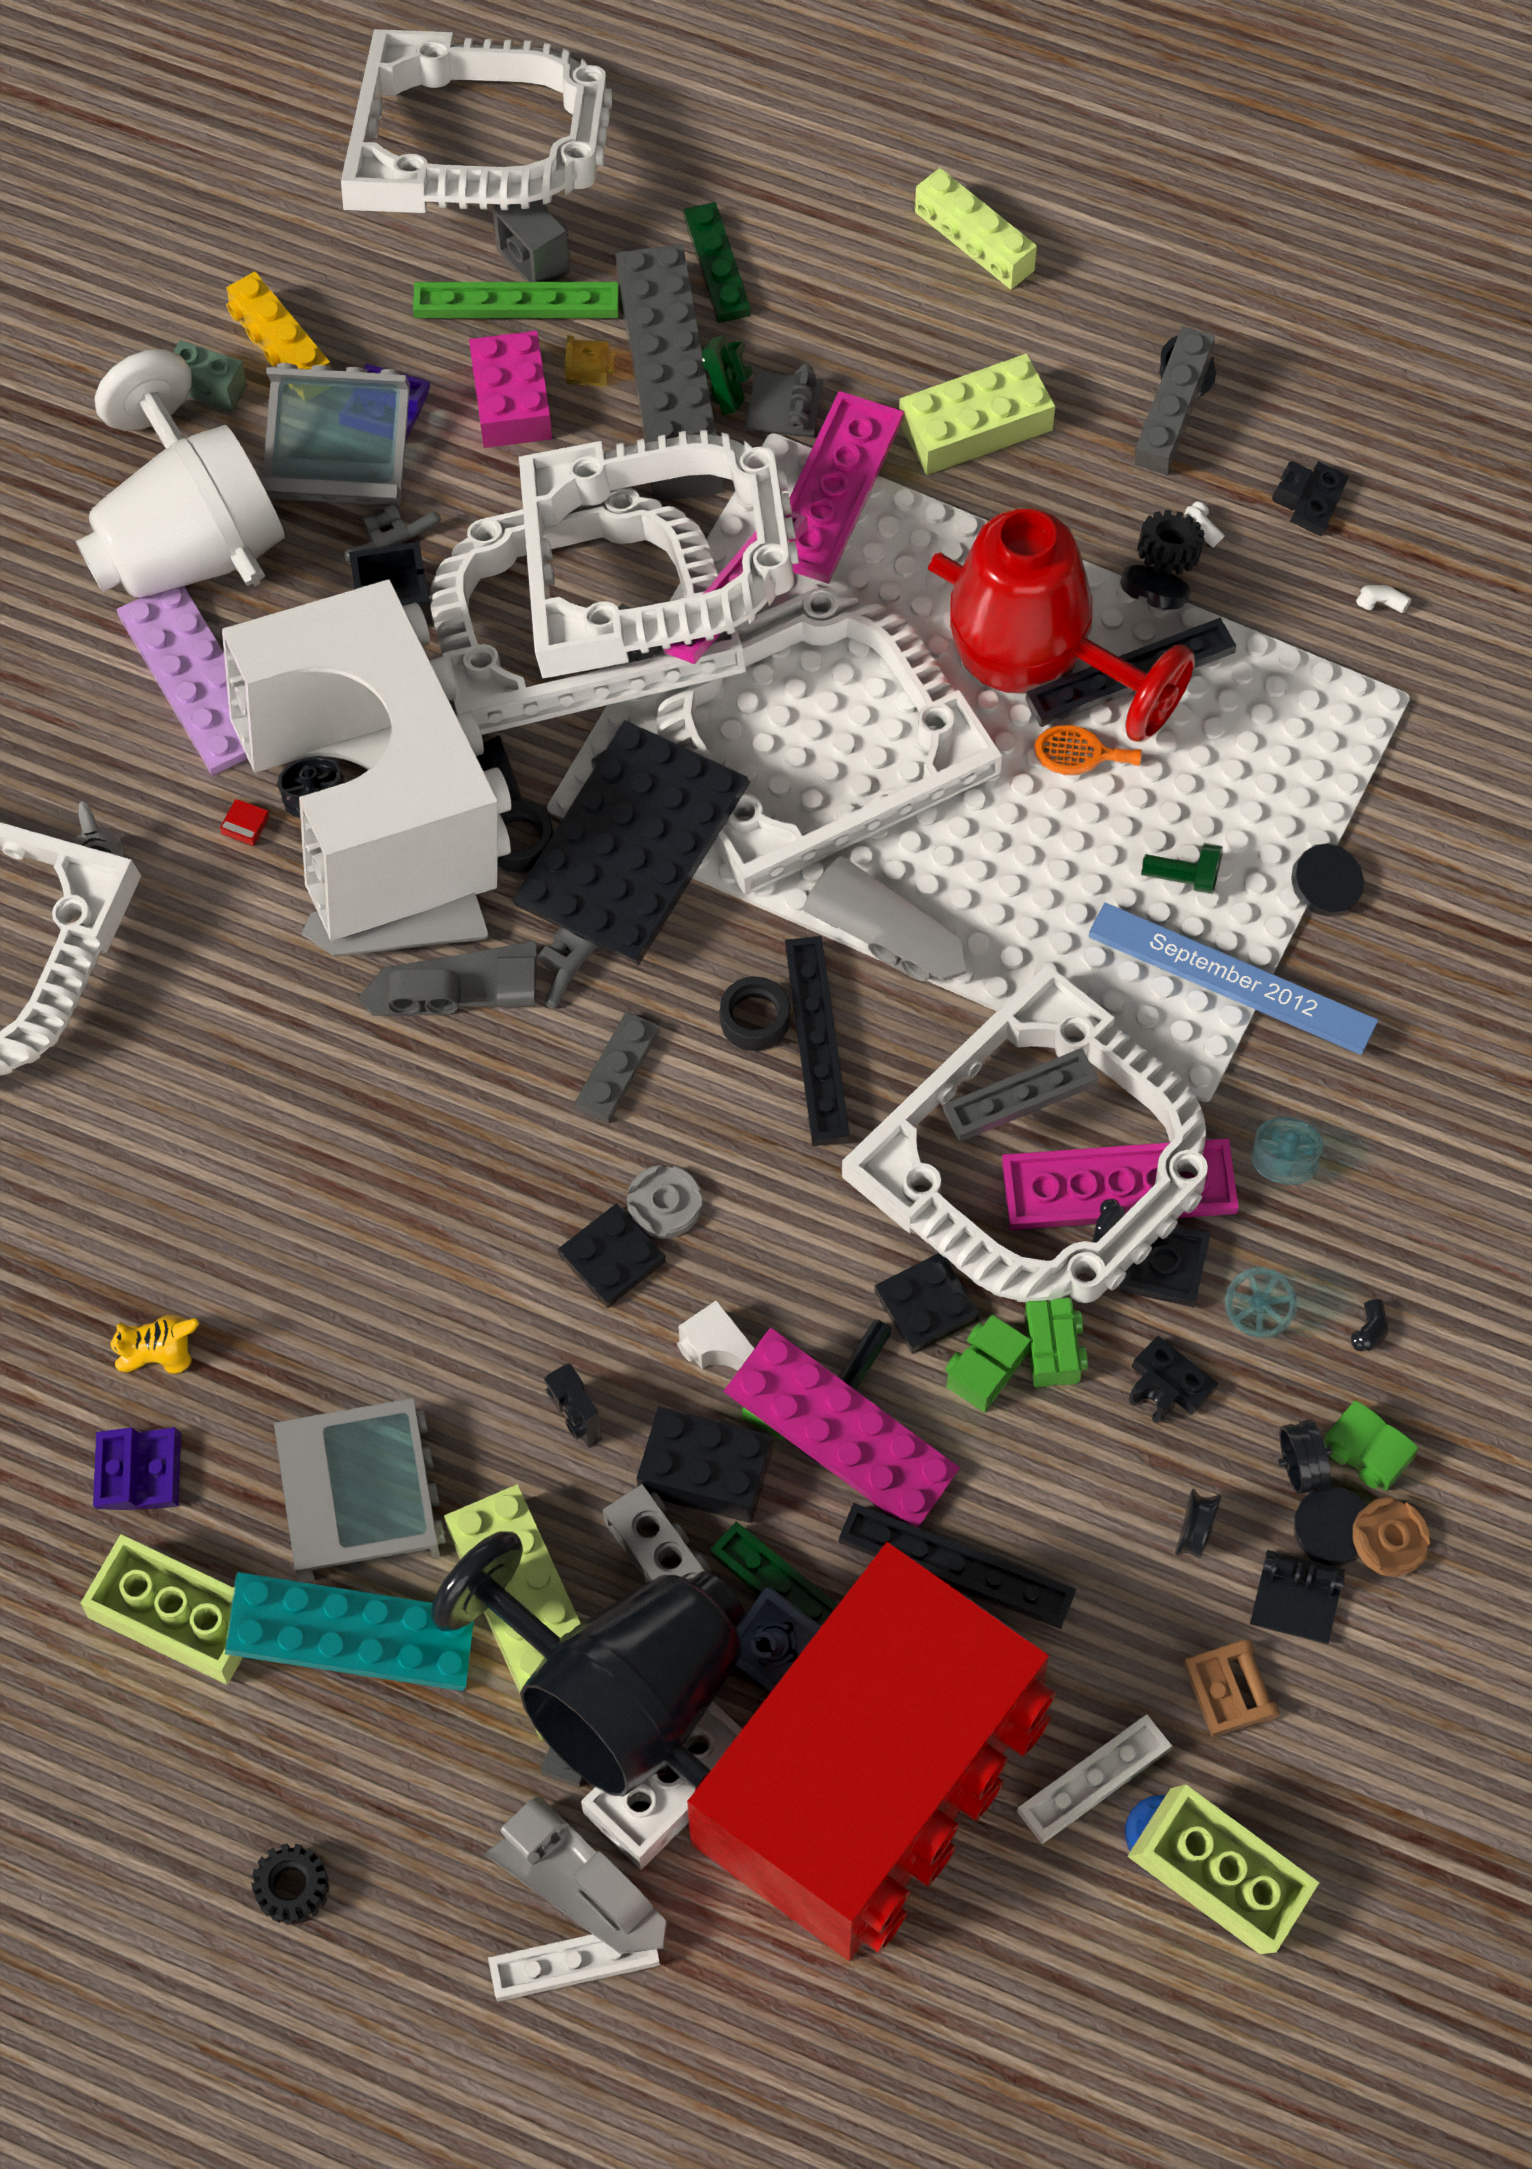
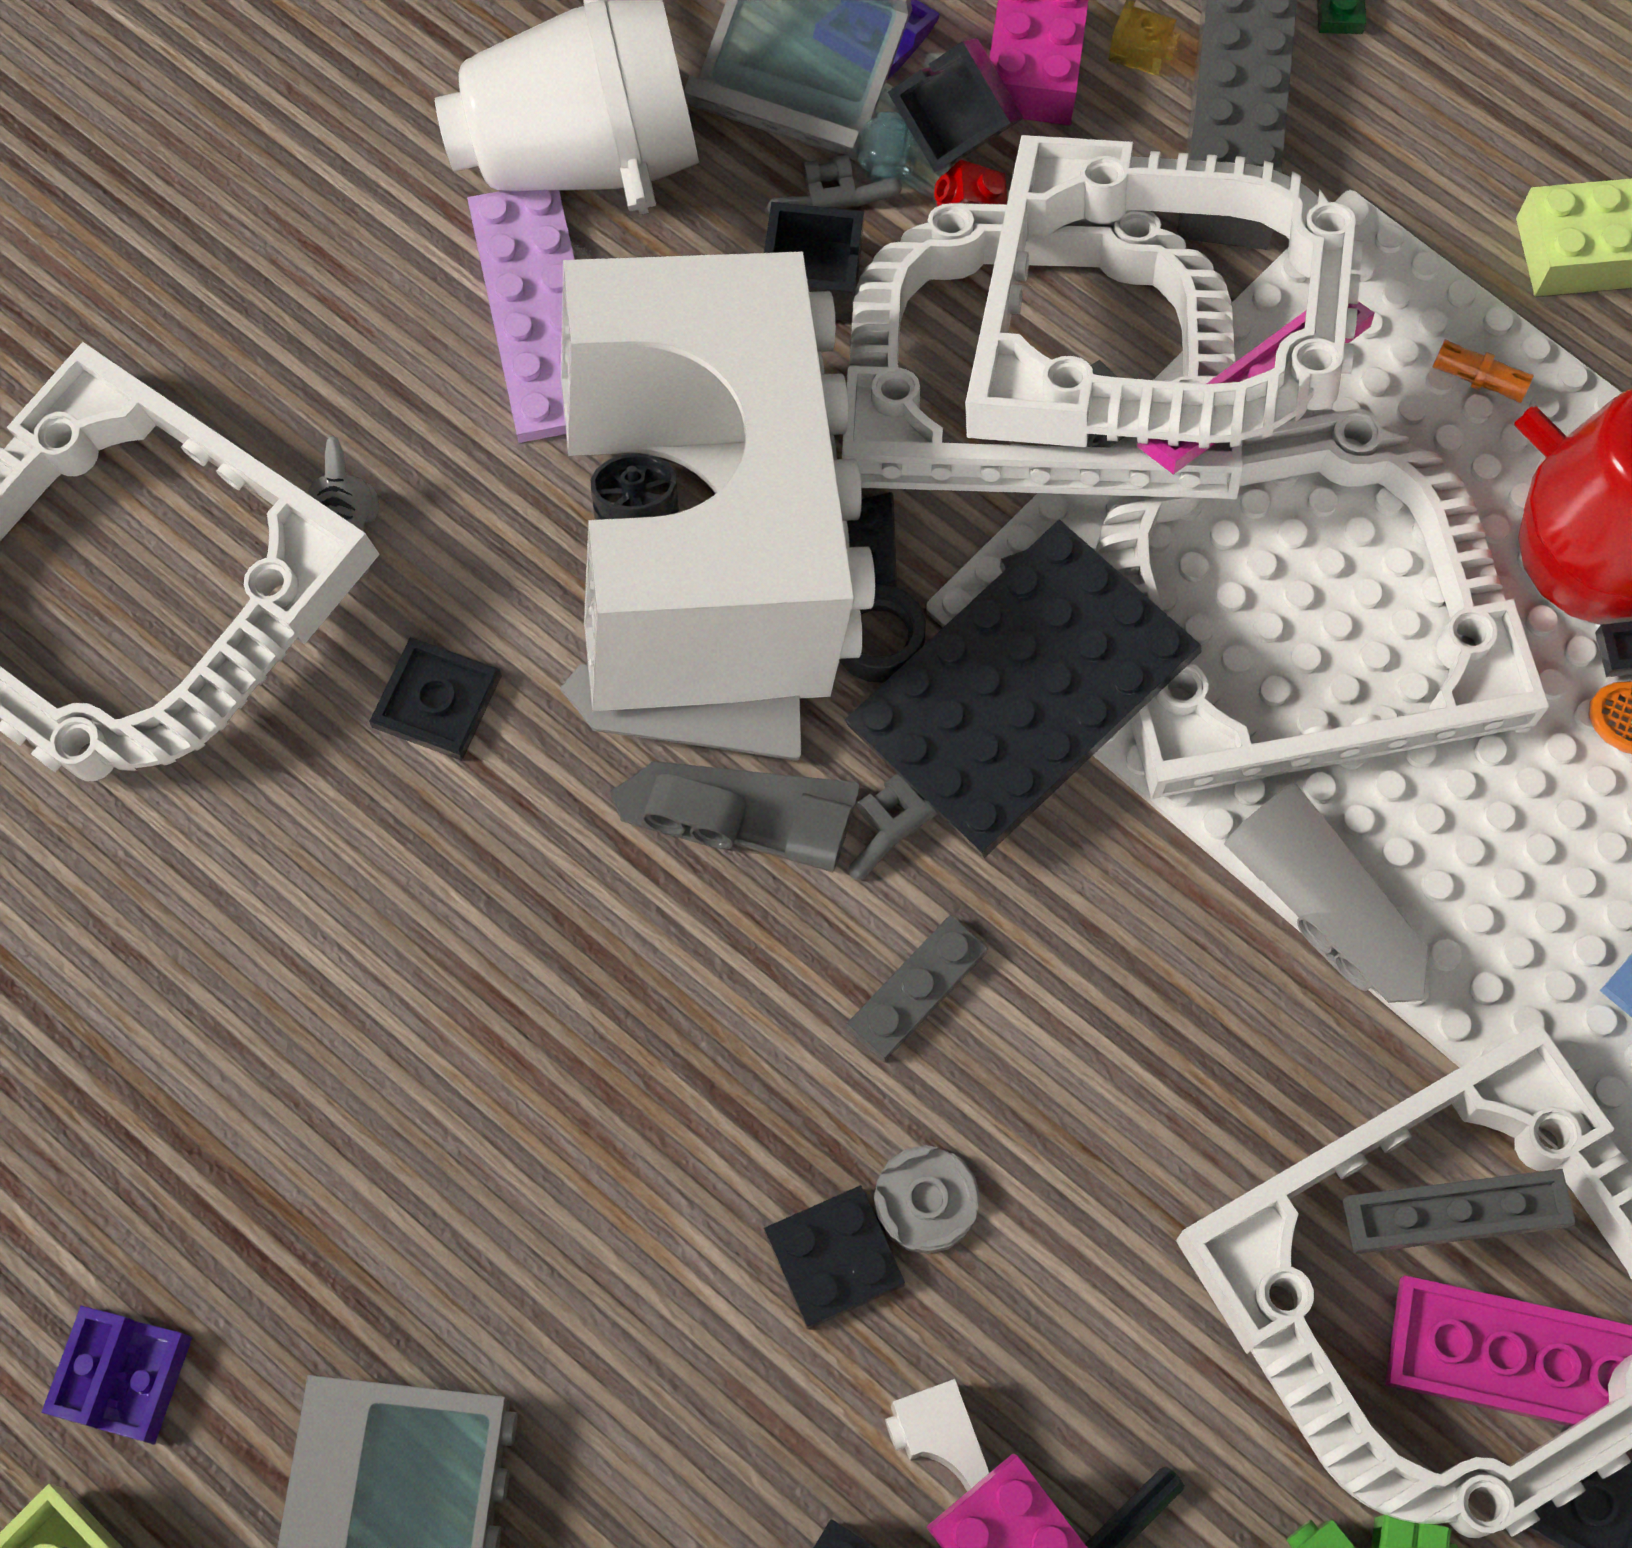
camera: 15 degrees right, 5 degrees up
(156, 1342) = (201, 1203): yellow animal -> none
(211, 968) = (435, 698): none -> black tile
(244, 822) = (538, 516): red tile -> none
(422, 490) = (888, 147): none -> clear light blue head
(464, 448) = (956, 107): none -> black piece
(490, 502) = (971, 185): none -> red bracket
(569, 1395) = (712, 1453): black plate -> none
(726, 372) = (1316, 95): dark green plate -> none
(760, 988) = (1135, 933): black tyre -> none
(785, 402) = (1378, 155): dark grey hinge -> none
(817, 1041) = (1192, 1033): black plate -> none
(840, 479) = (1427, 270): dark pink plate -> none
(900, 538) = (1483, 371): none -> orange pin
(926, 1302) = (1243, 1459): black plate -> none
(1111, 1213) = (1527, 1429): black arm -> none

